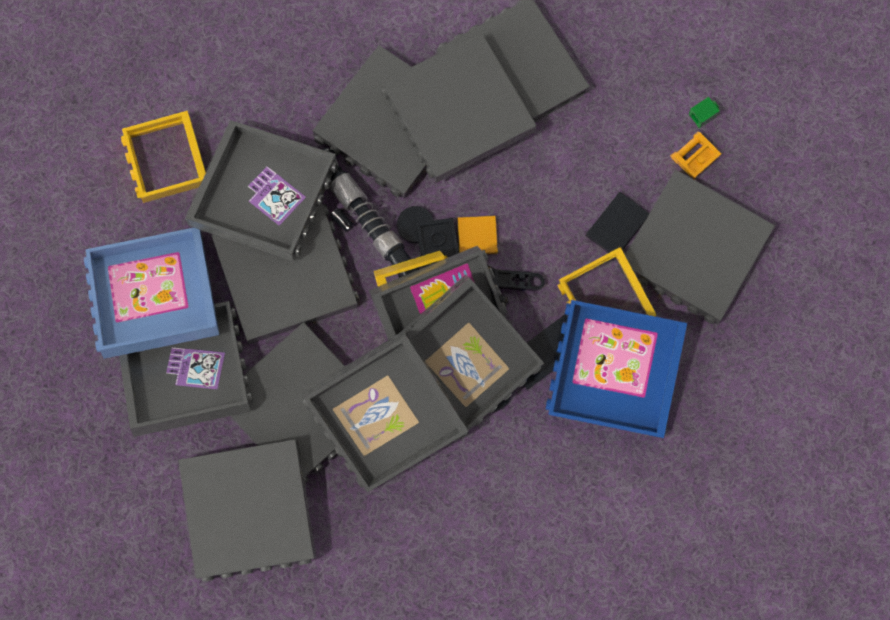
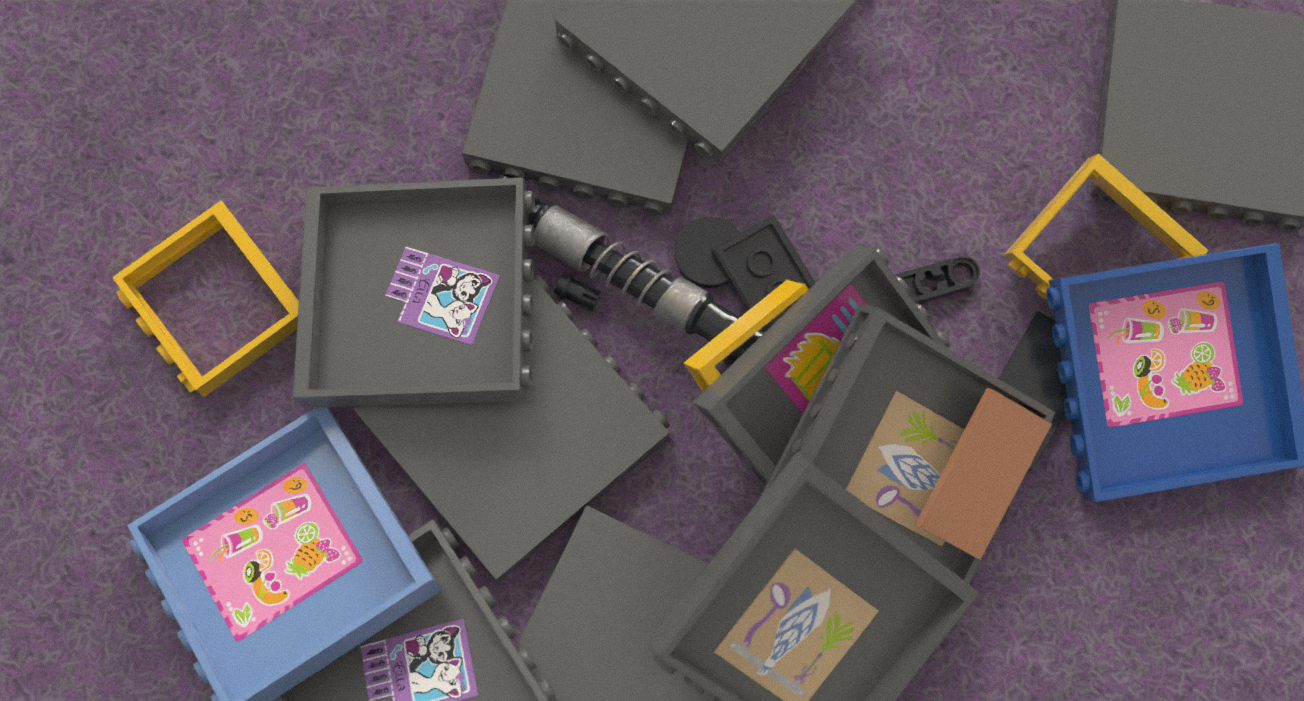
camera: 20 degrees left, 0 degrees up
(478, 232) = (825, 229): light orange tile -> none
(495, 377) = (983, 473): none -> nougat tile
(617, 223) = (1056, 121): black tile -> none

